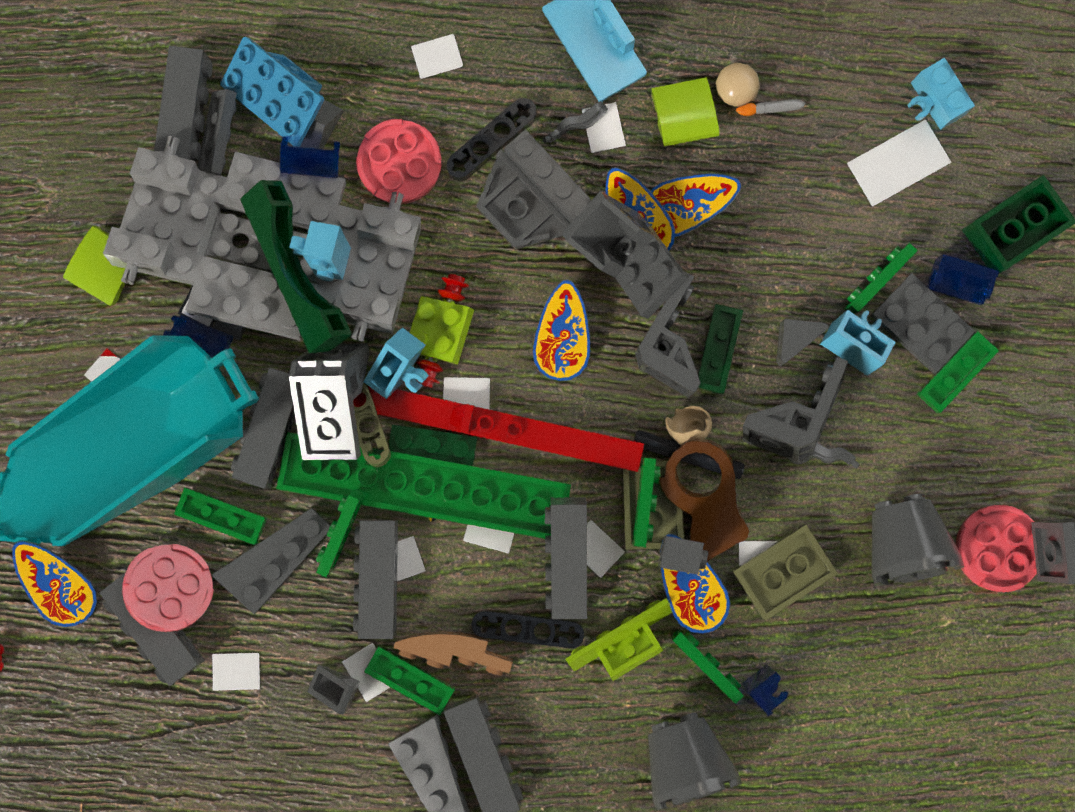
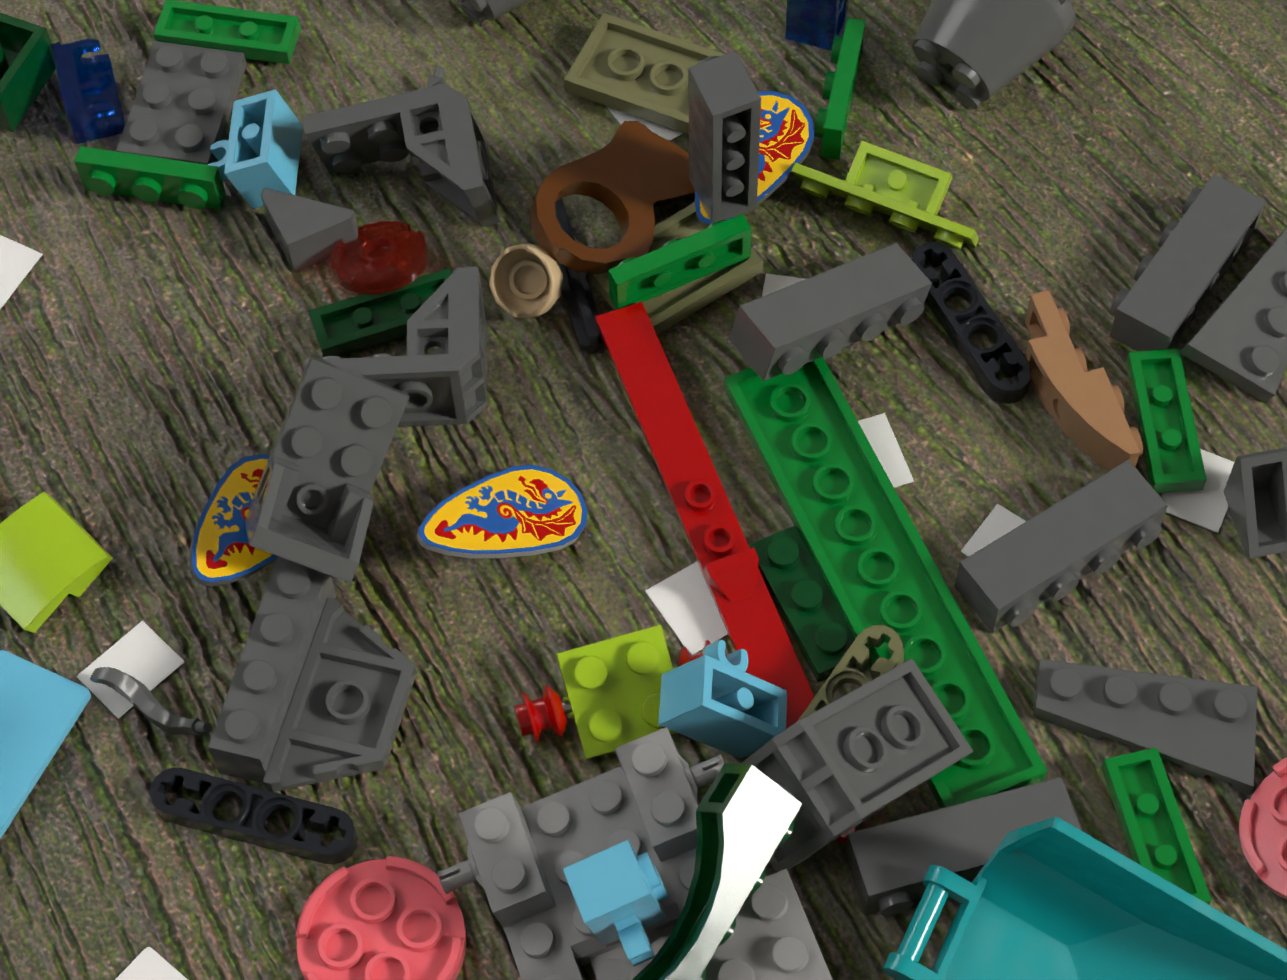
camera: 125 degrees left, 25 degrees down
(339, 532) = (1036, 629): green plate -> none
(696, 199) = (171, 456): shield -> none
(753, 364) = (380, 258): none -> clear red tile

